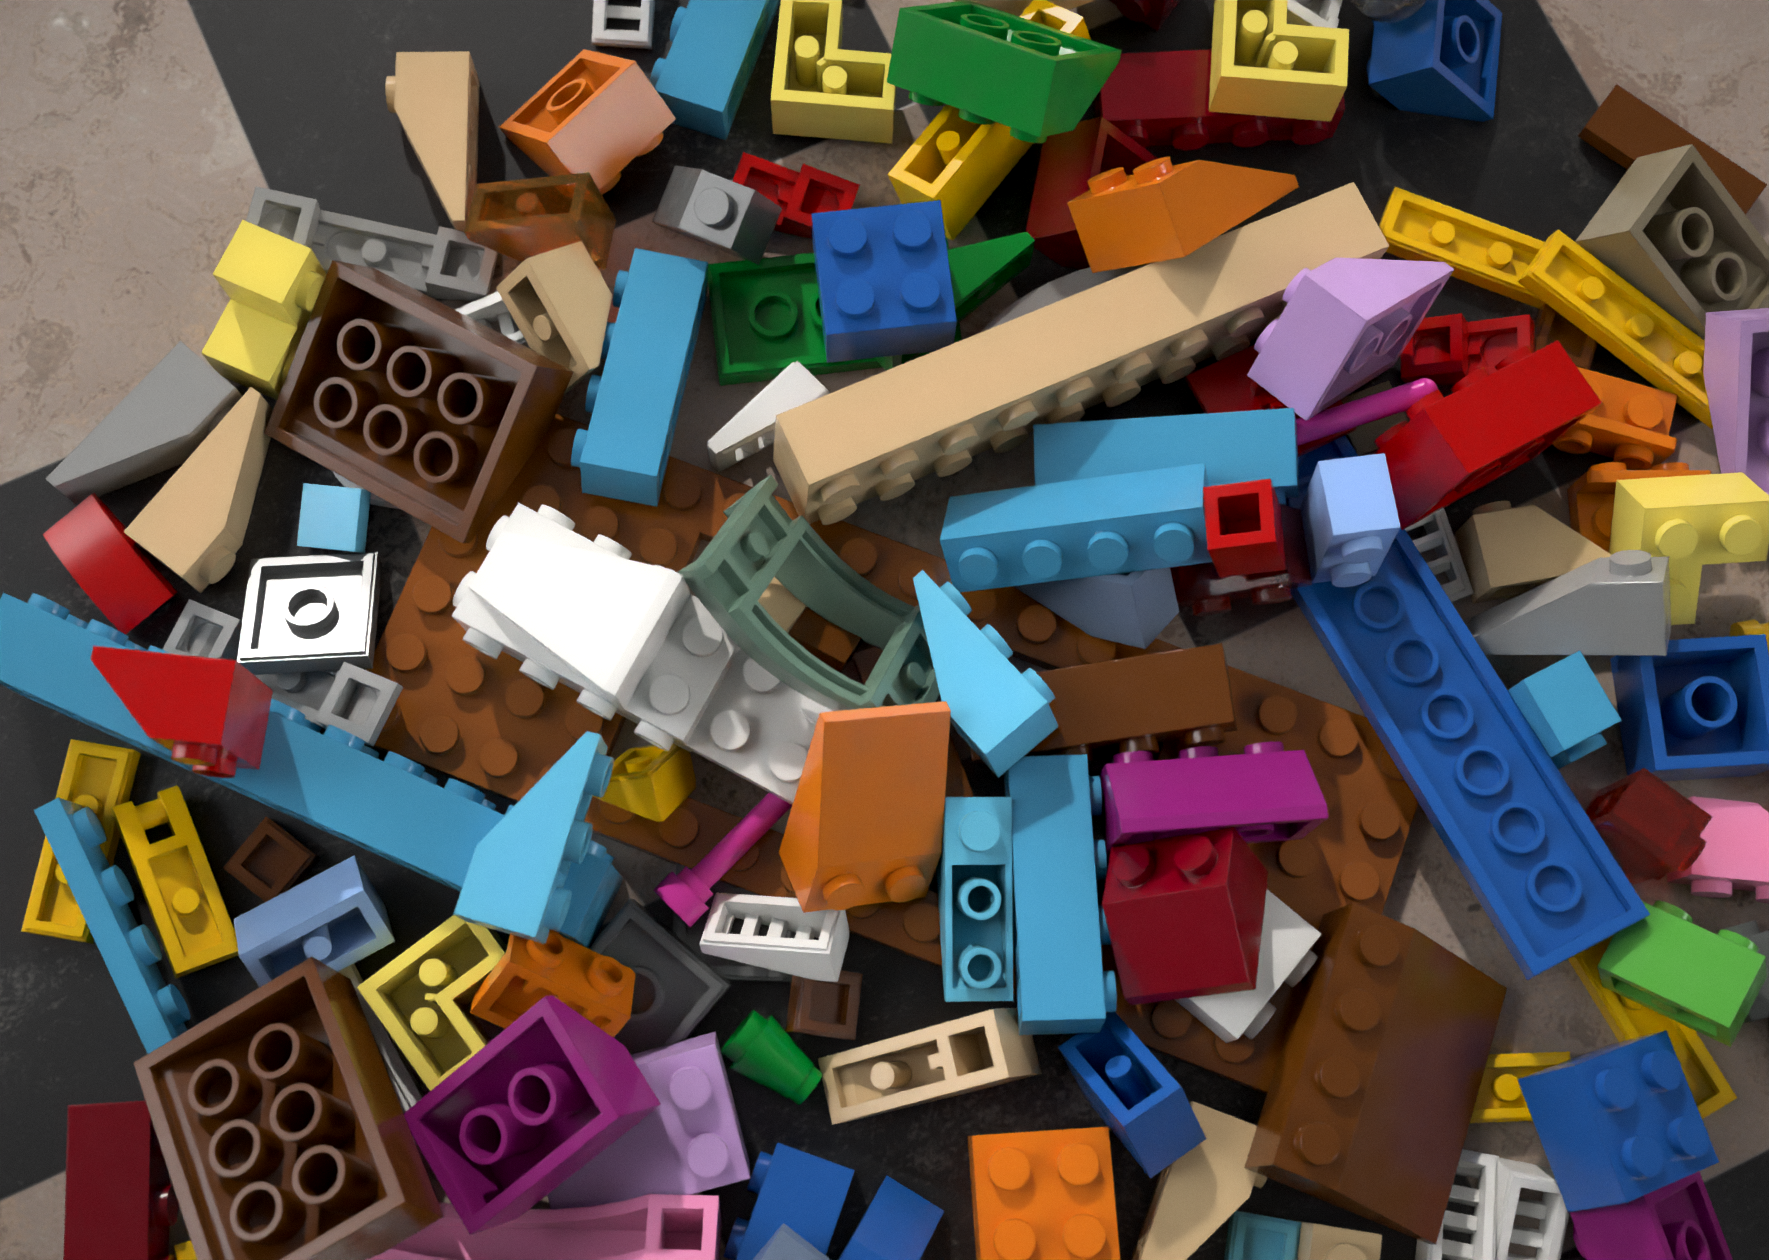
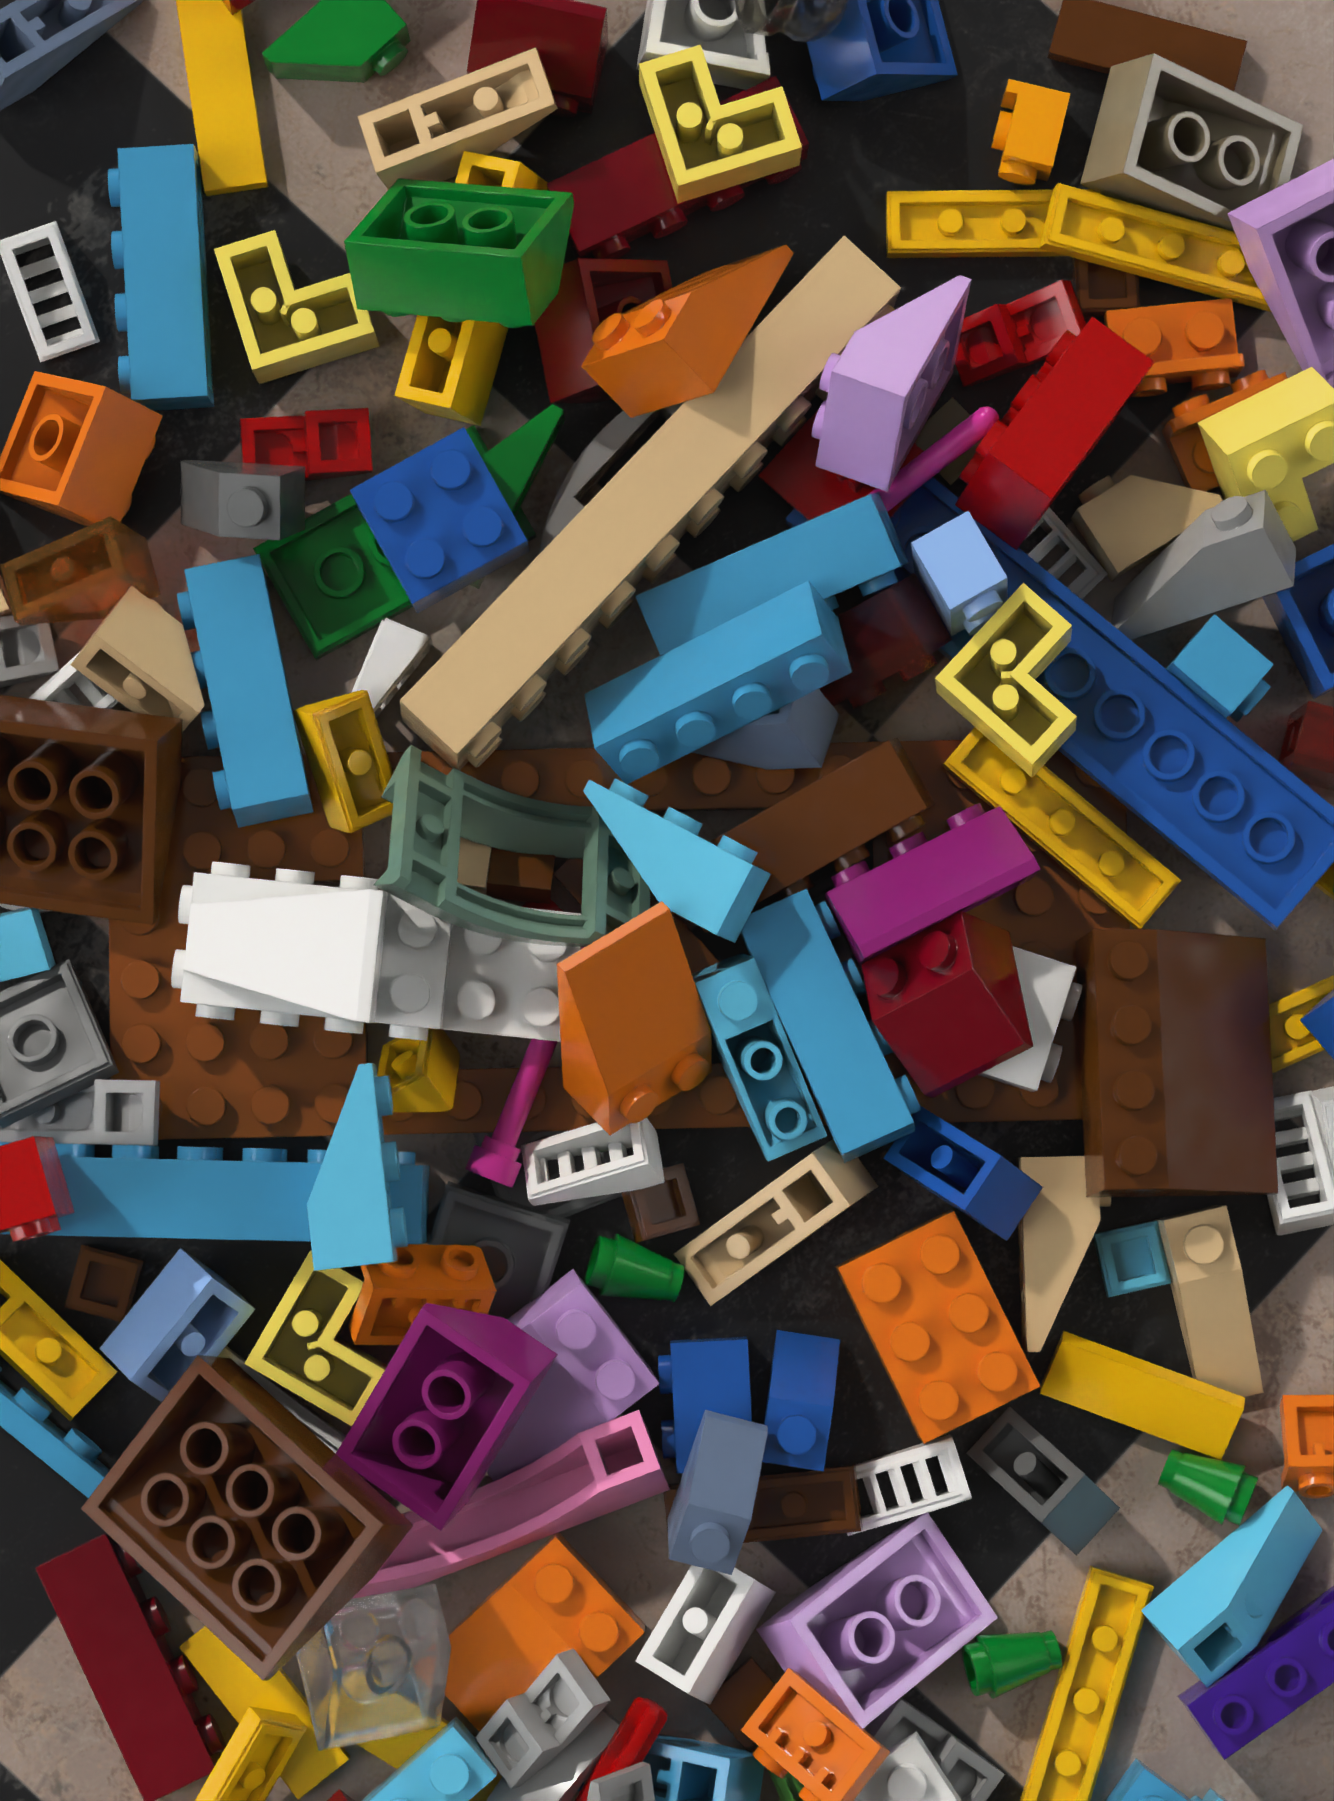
camera: 20 degrees left, 10 degrees up
(706, 467) = (346, 759): none -> yellow slope
(1244, 528) = (868, 630): red brick -> none
(1348, 635) = (996, 683): none -> light yellow brick
(1357, 801) = (1066, 829): none -> yellow tile
(1544, 181) = (1030, 132): none -> light orange brick

